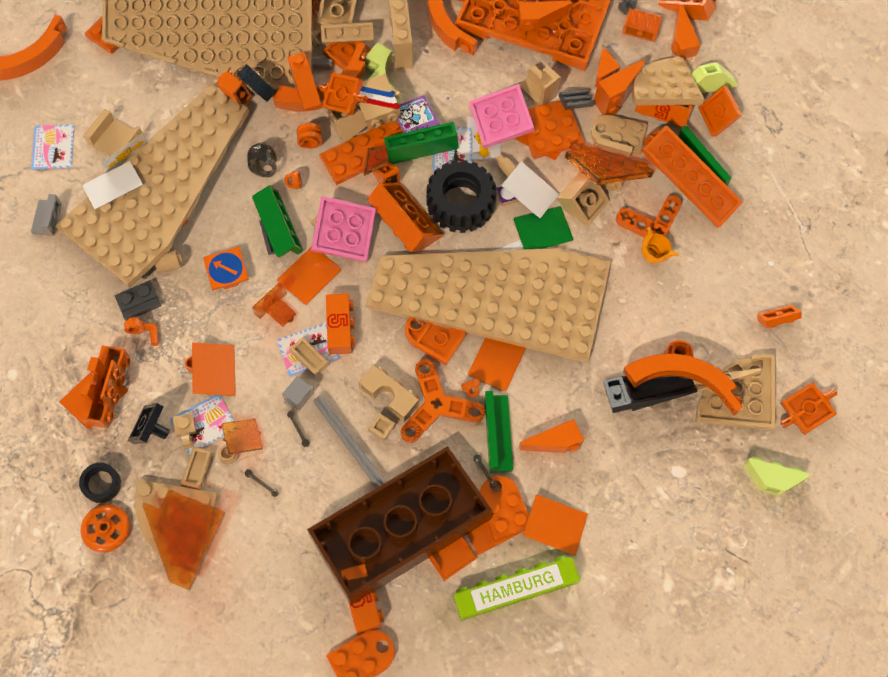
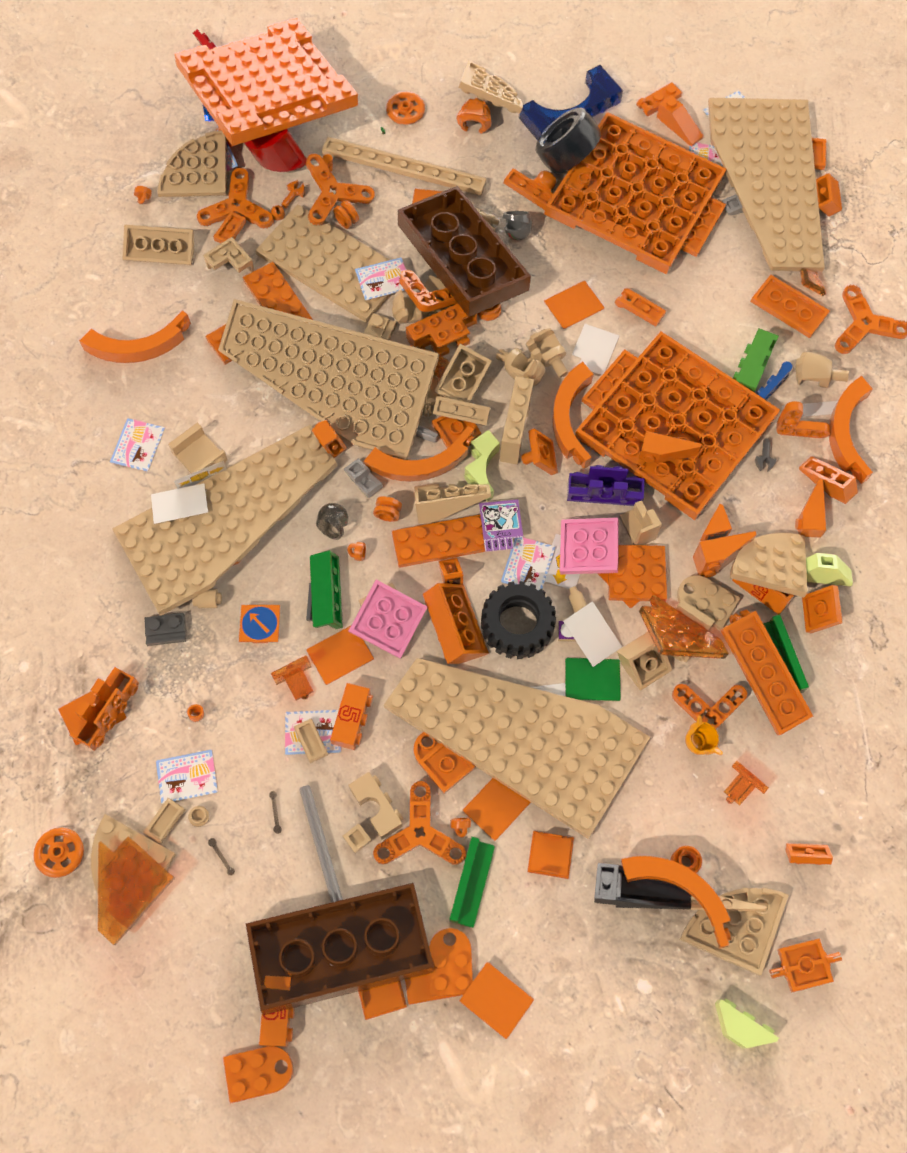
camera: 20 degrees right, 0 degrees up
(46, 216) = (107, 515): light grey panel -> none
(89, 472) = (78, 816): black tyre -> none
(137, 326) = (154, 655): orange plate -> none
(147, 425) = (131, 762): black tile -> none
(184, 427) = (165, 775): tan plate -> none
(213, 369) = (213, 724): orange sticker -> none
(242, 436) = (217, 802): clear orange piece -> none
(257, 83) = (352, 440): black wheel -> none
(276, 116) = (363, 478): none -> light grey slope
(297, 394) = (285, 776): light grey brick -> none
(304, 81) = (399, 452): orange slope -> none
(342, 93) = (432, 477): orange plate -> none
(375, 159) = (445, 554): clear orange piece -> none
(381, 102) = (464, 495): tan panel -> none
(421, 143) = (497, 550): green panel -> none
(432, 49) = (541, 453): none -> orange tile
(477, 459) = (442, 903): clear smoke hinge -> none
(497, 62) = (605, 486): none -> dark purple piece
(515, 588) = (433, 1054): lime brick -> none
(557, 439) = (532, 911): orange slope -> none
(558, 387) = (550, 854): none -> orange piece
(575, 96) = (678, 544): dark grey tile -> none
(642, 25) = (772, 488): orange brick -> none
(704, 275) = (743, 785): none -> clear orange piece

